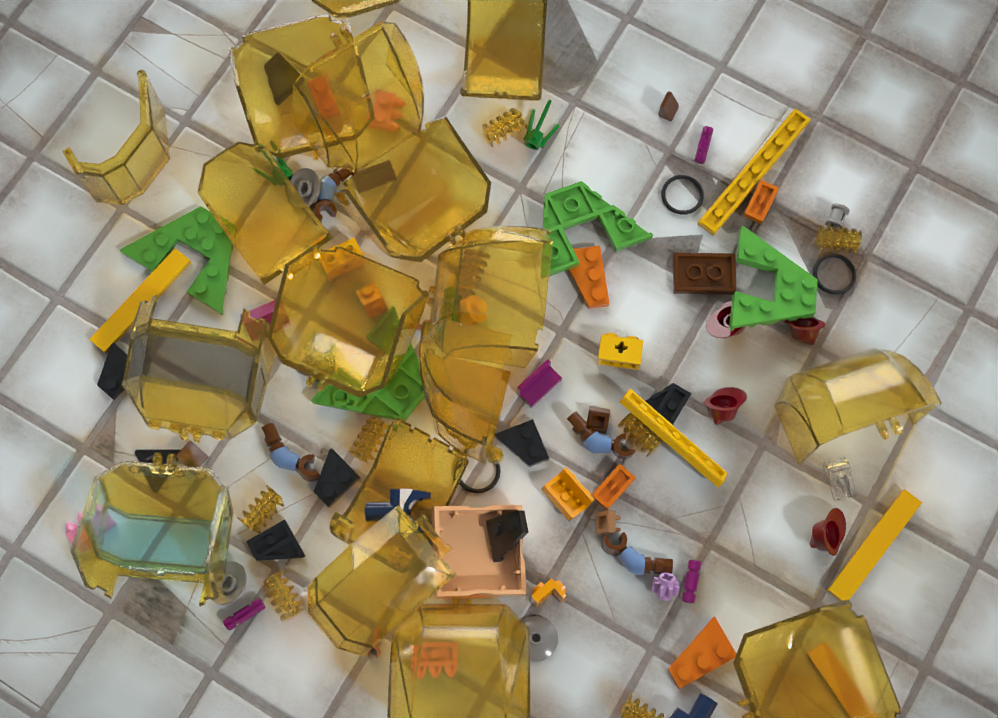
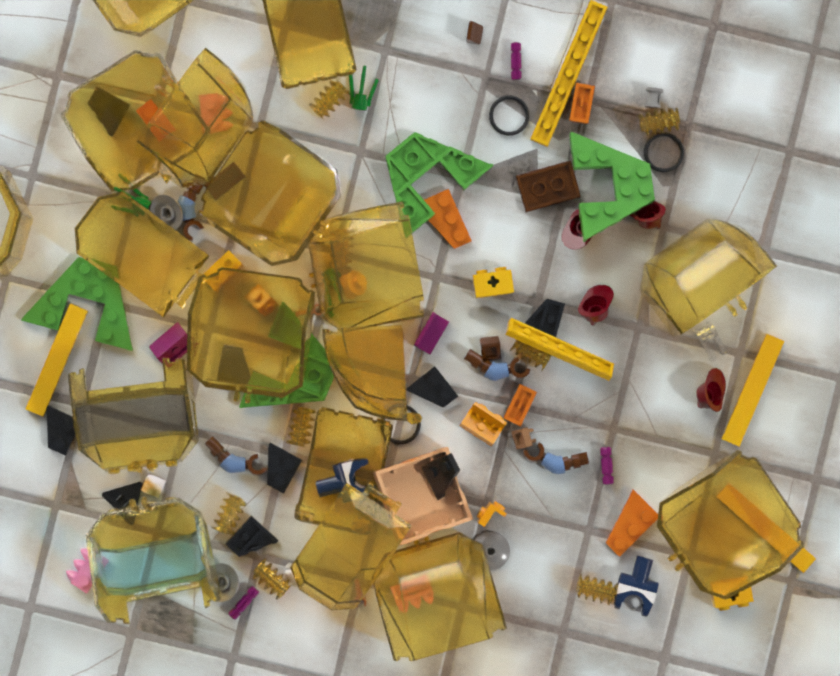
camera: 15 degrees left, 15 degrees up
(665, 586) = (586, 477): lavender gear -> none

